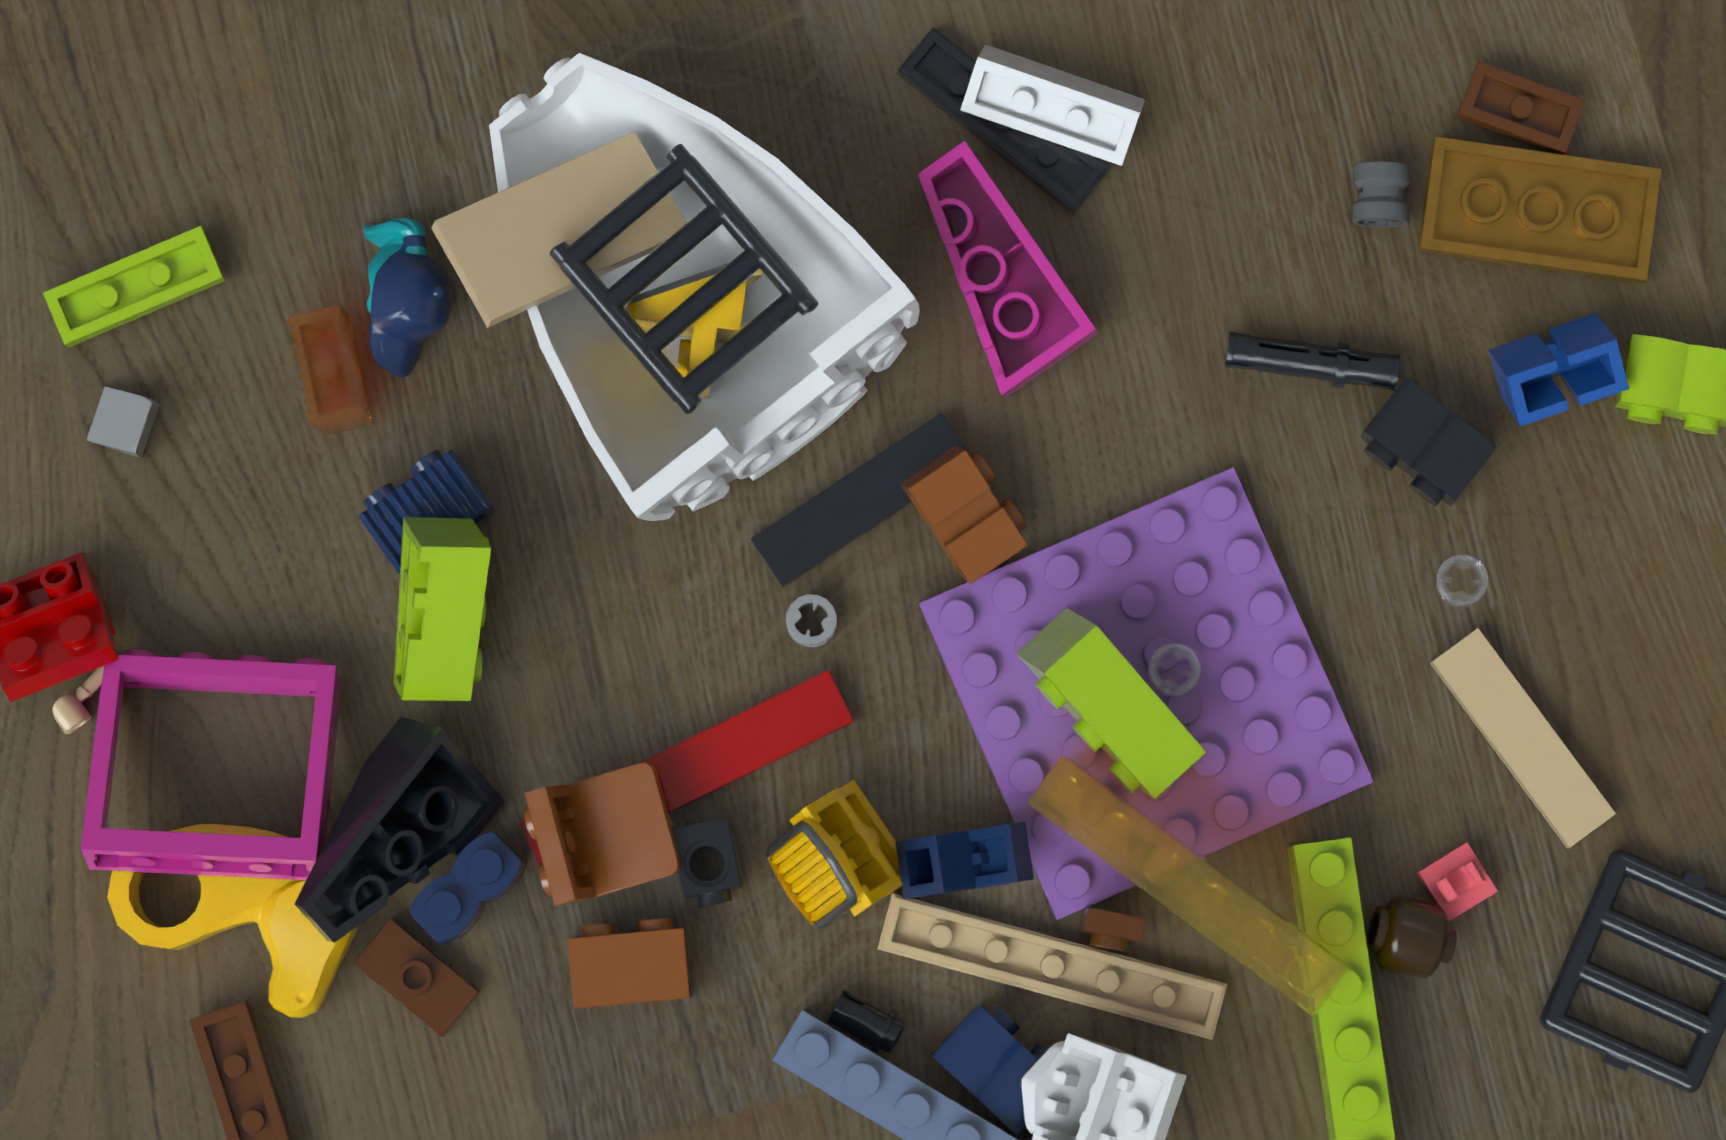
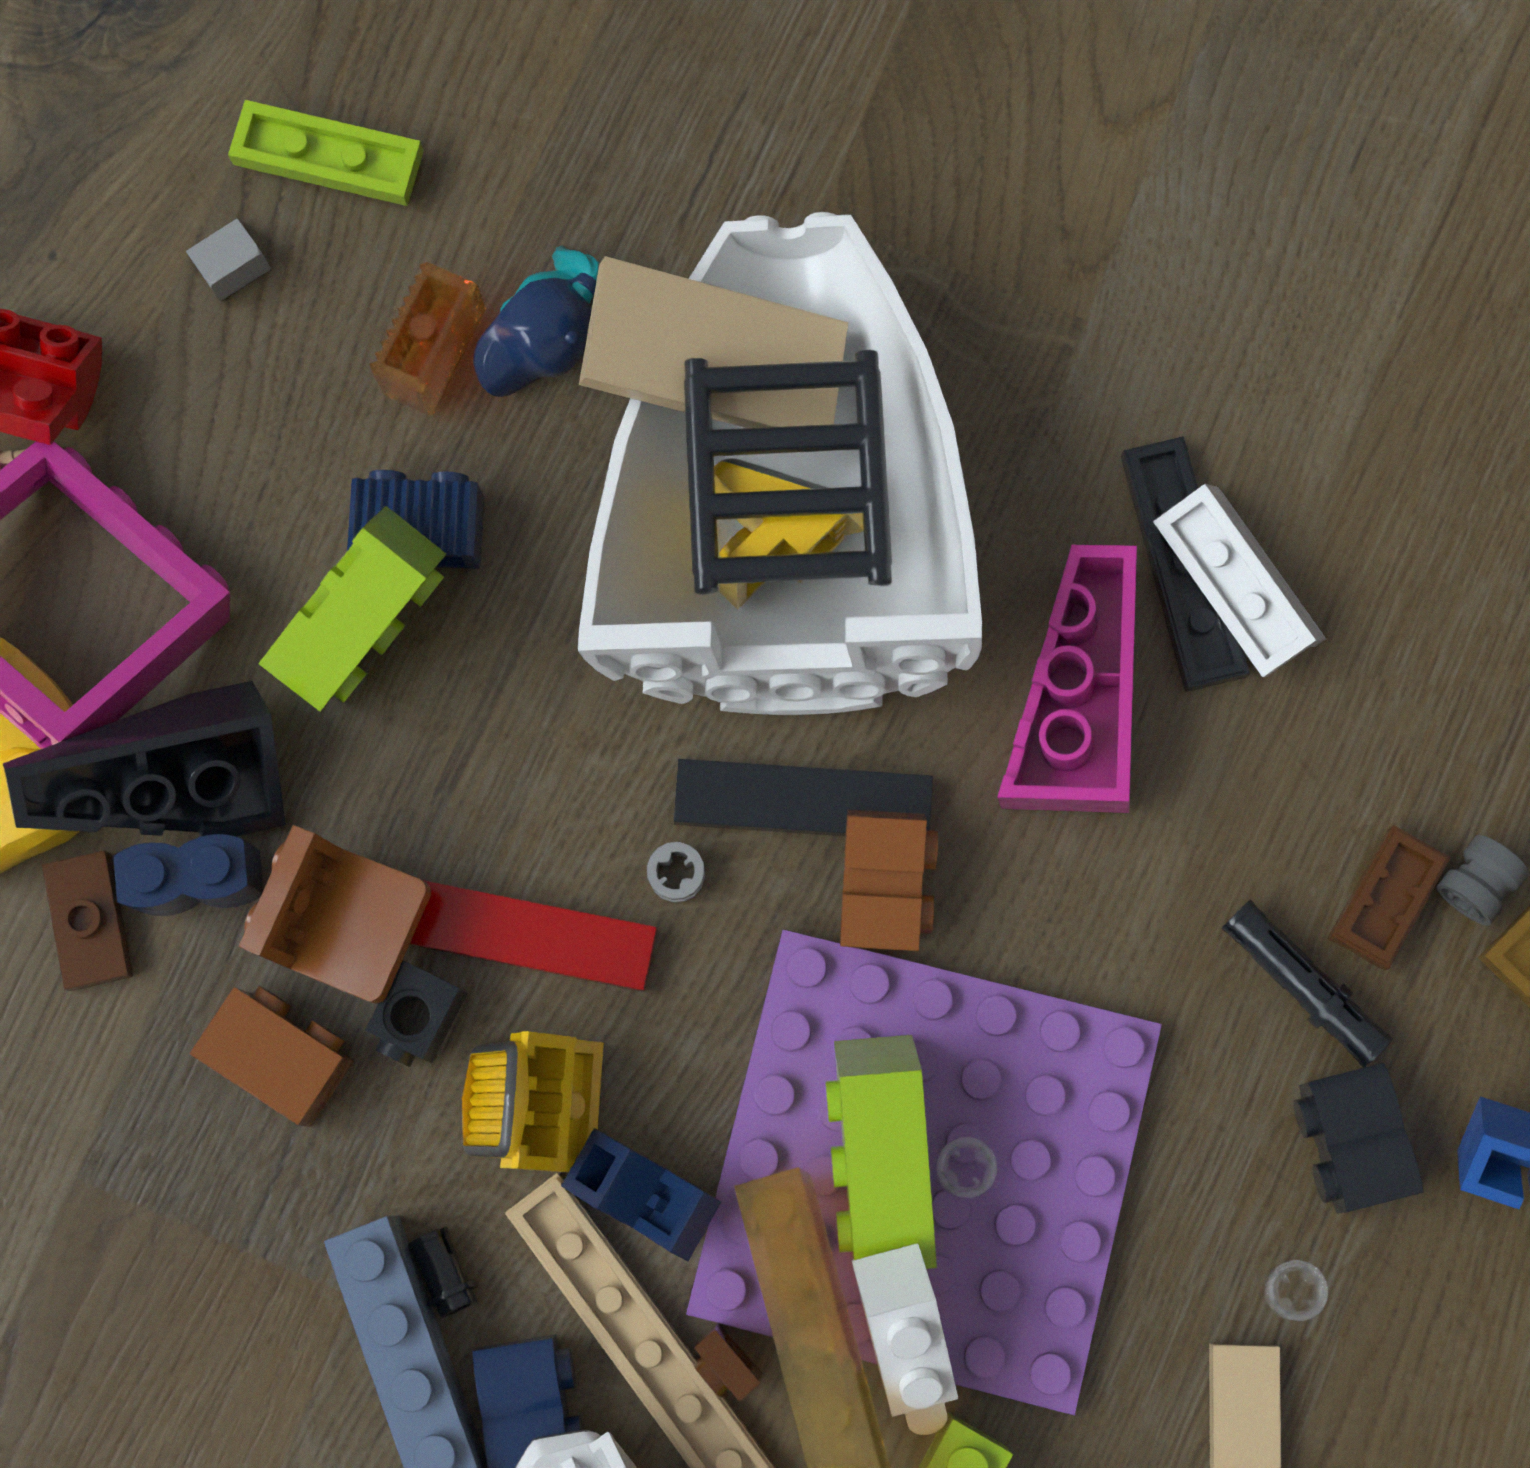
camera: 40 degrees right, 5 degrees down
(1221, 813) = (907, 1336): none -> white brick
(1325, 256) = (1388, 897): none -> reddish brown plate

